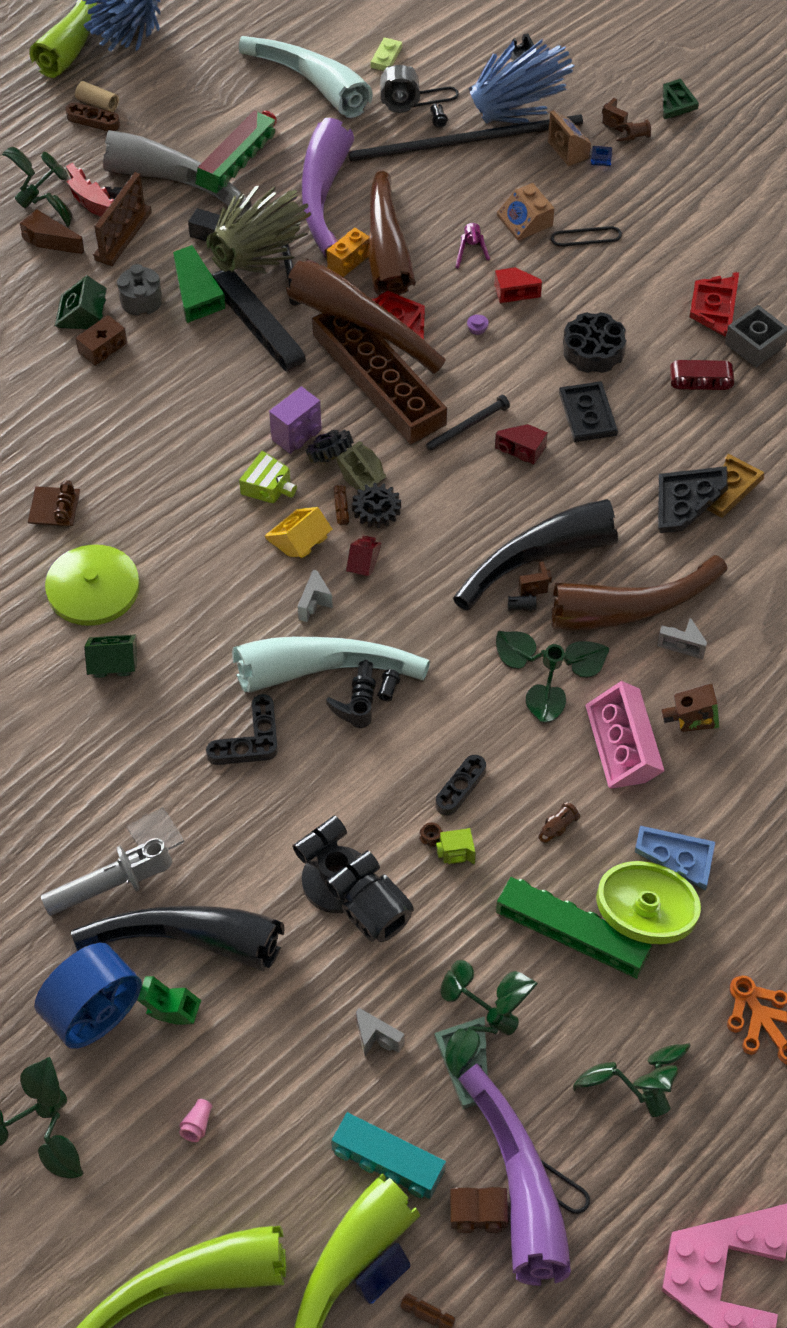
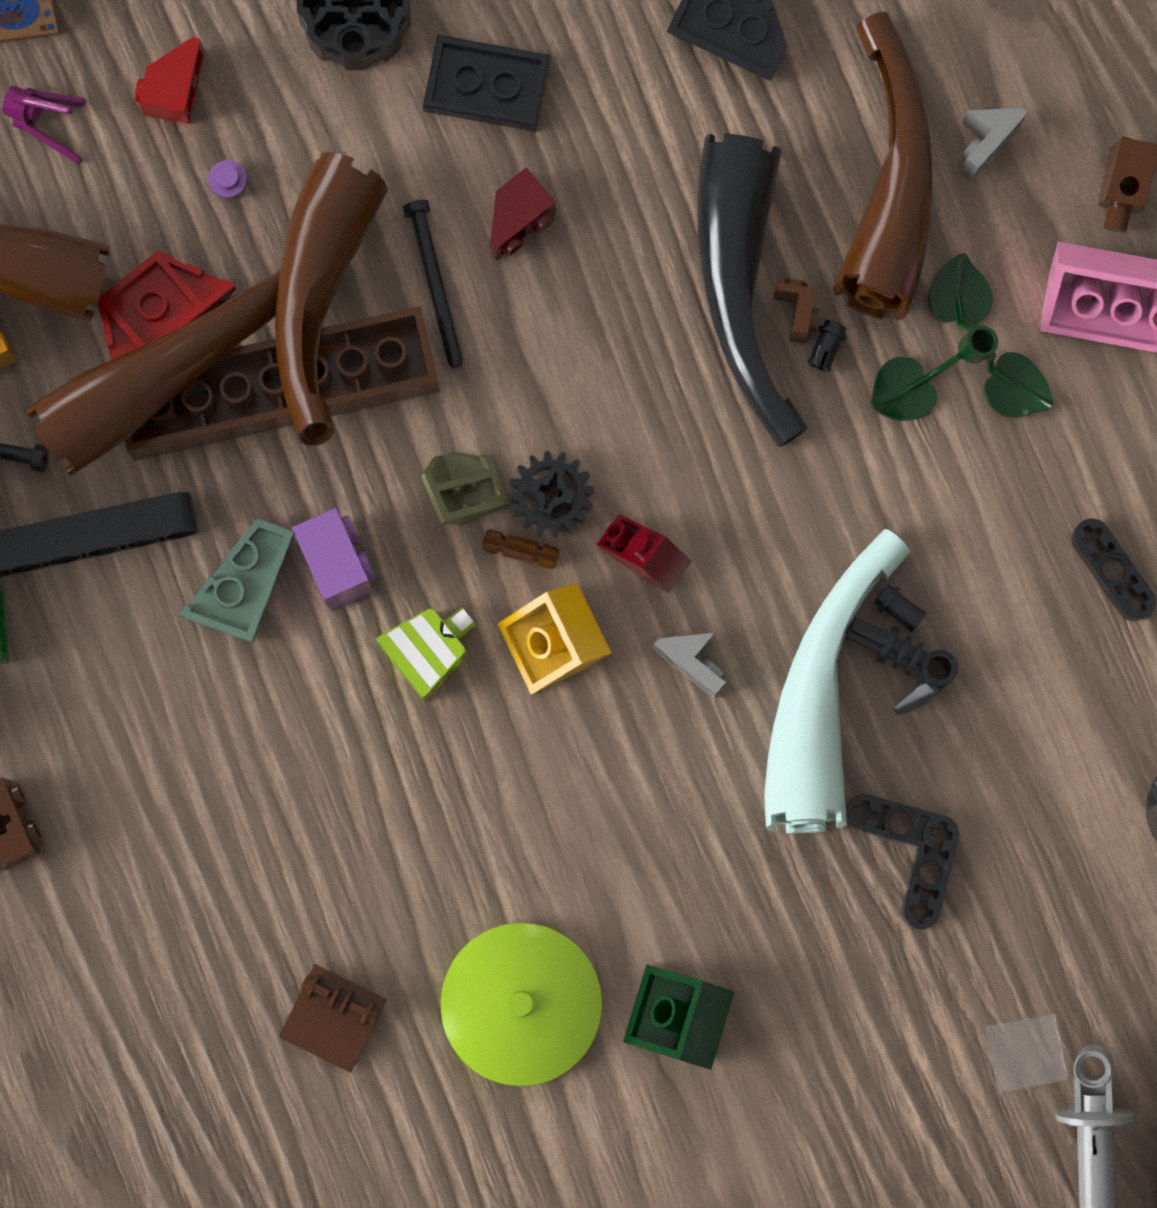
camera: 70 degrees left, 25 degrees up
(261, 395) = (243, 584): none -> sand green wing
(329, 446) = (407, 524): black gear -> none
(458, 357) = (319, 246): none -> reddish brown brick

